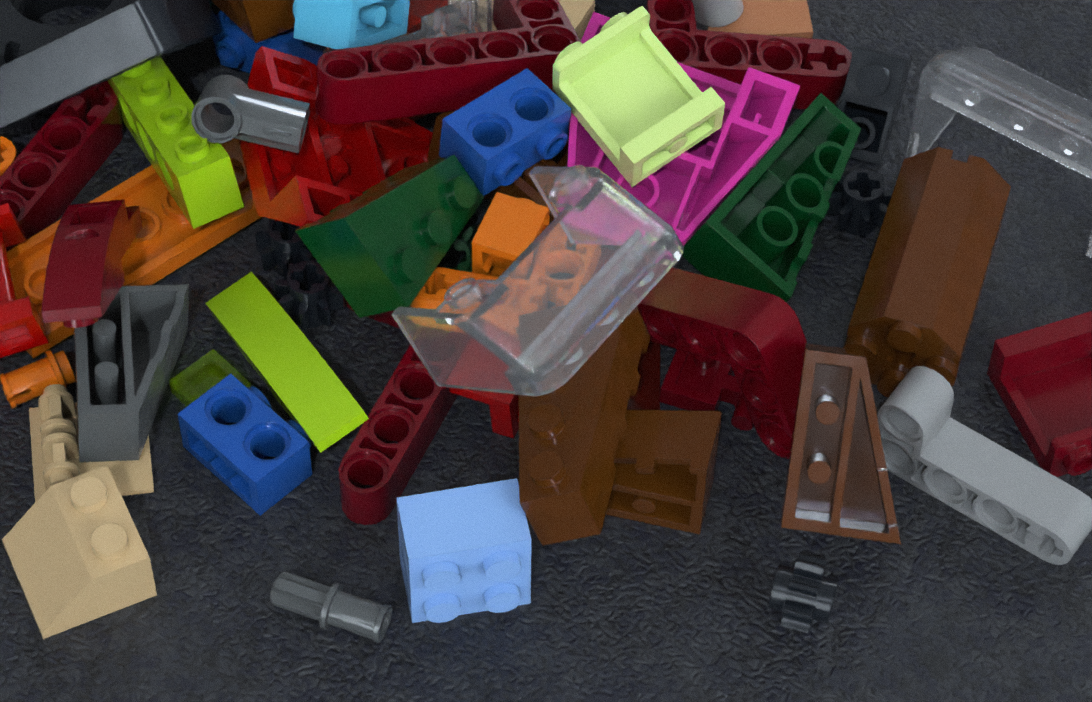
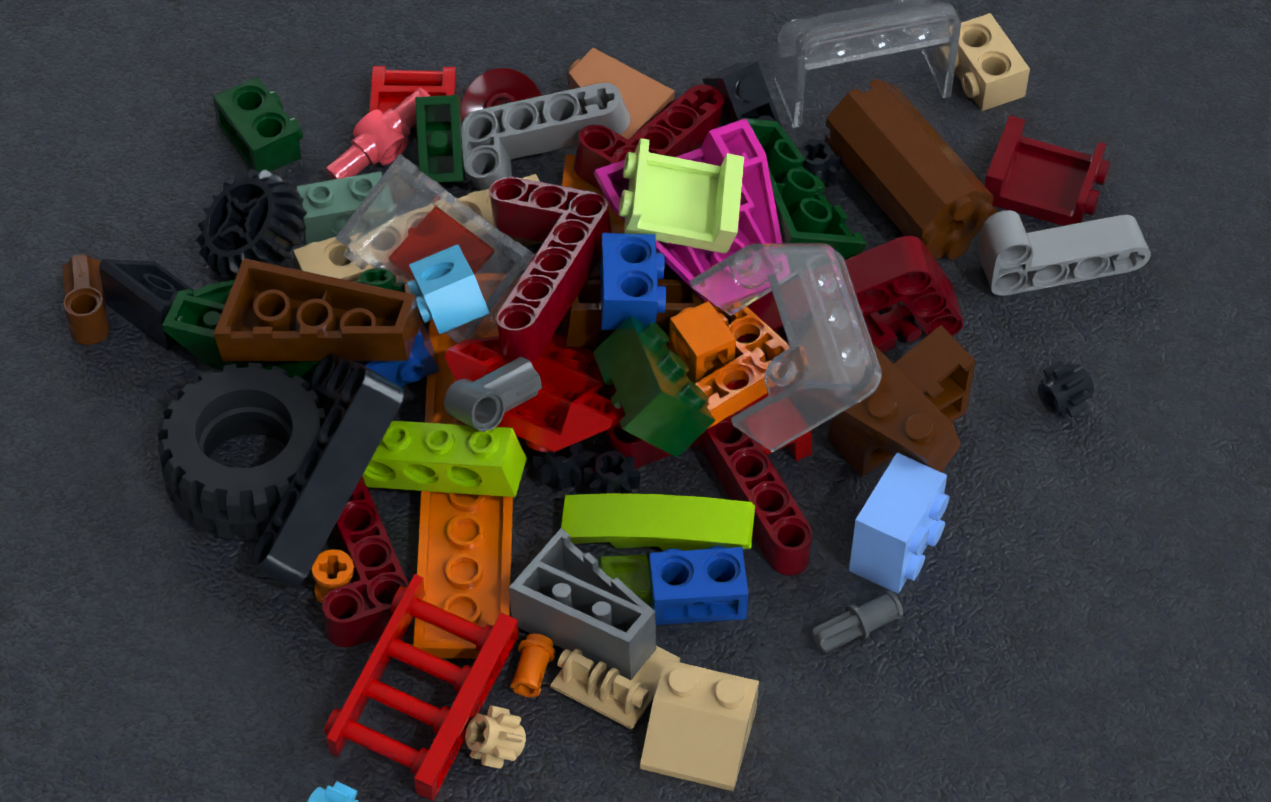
camera: 50 degrees left, 0 degrees up
(86, 261) = (515, 555): dark red slope -> none
(836, 452) = (999, 297): reddish brown wedge -> none

